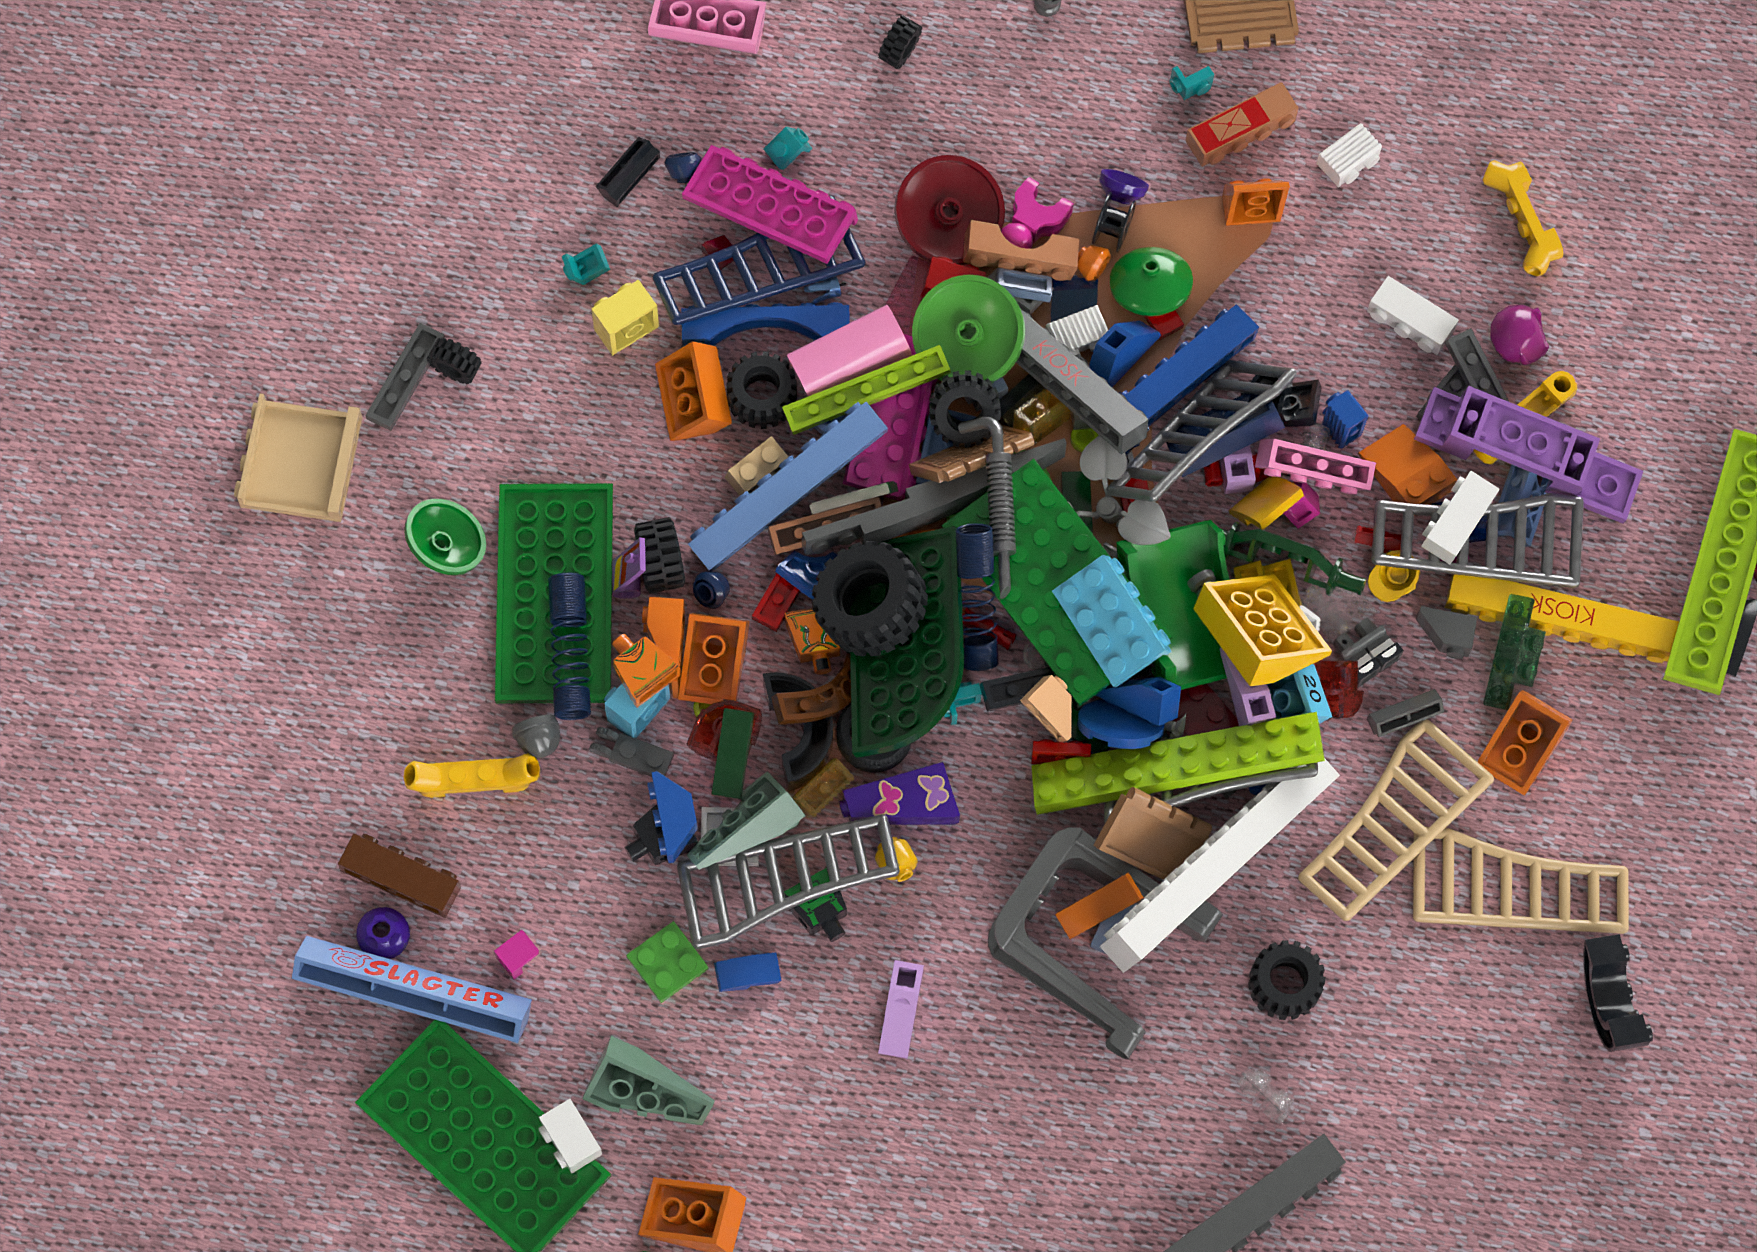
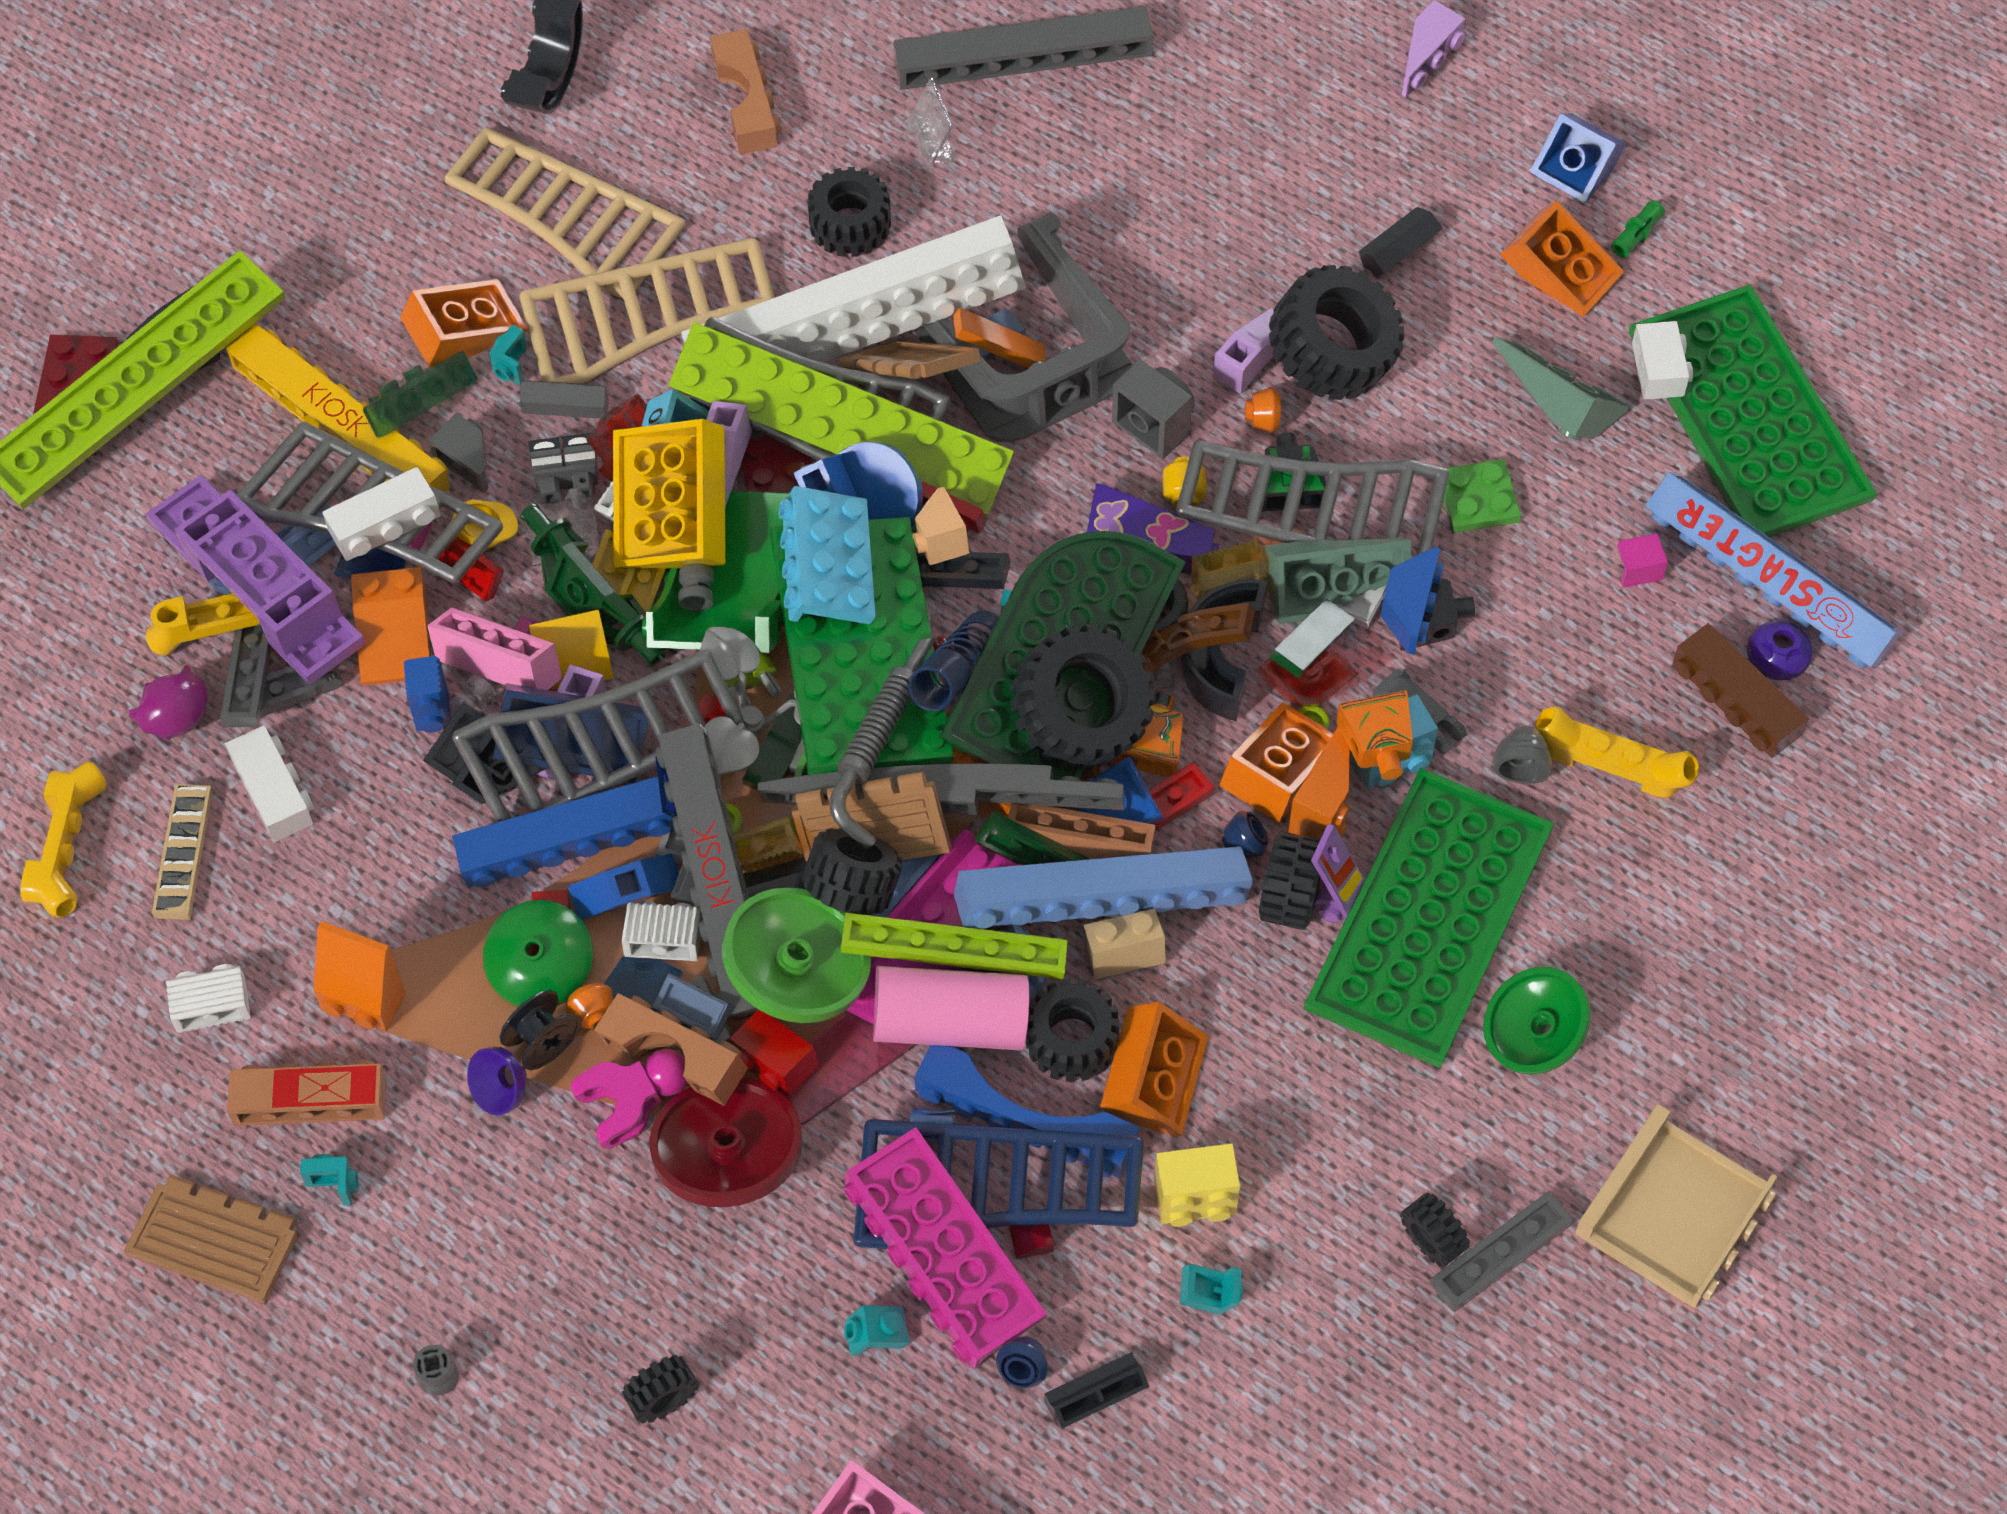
camera: 150 degrees left, 10 degrees down
(568, 609) = (1429, 863): dark blue piece -> none
(747, 971) = (1396, 444): blue slope -> none
(806, 1015) = (1355, 304): none -> black tyre
(832, 1171) = (1399, 241): none -> black piece
(866, 953) = (1264, 410): none -> orange cone
(949, 904) = (1153, 407): none -> dark grey piece
(1439, 248) = (182, 852): none -> tile
(1465, 1090) = (752, 119): none -> nougat arch
(1474, 731) = (506, 353): none -> teal bracket

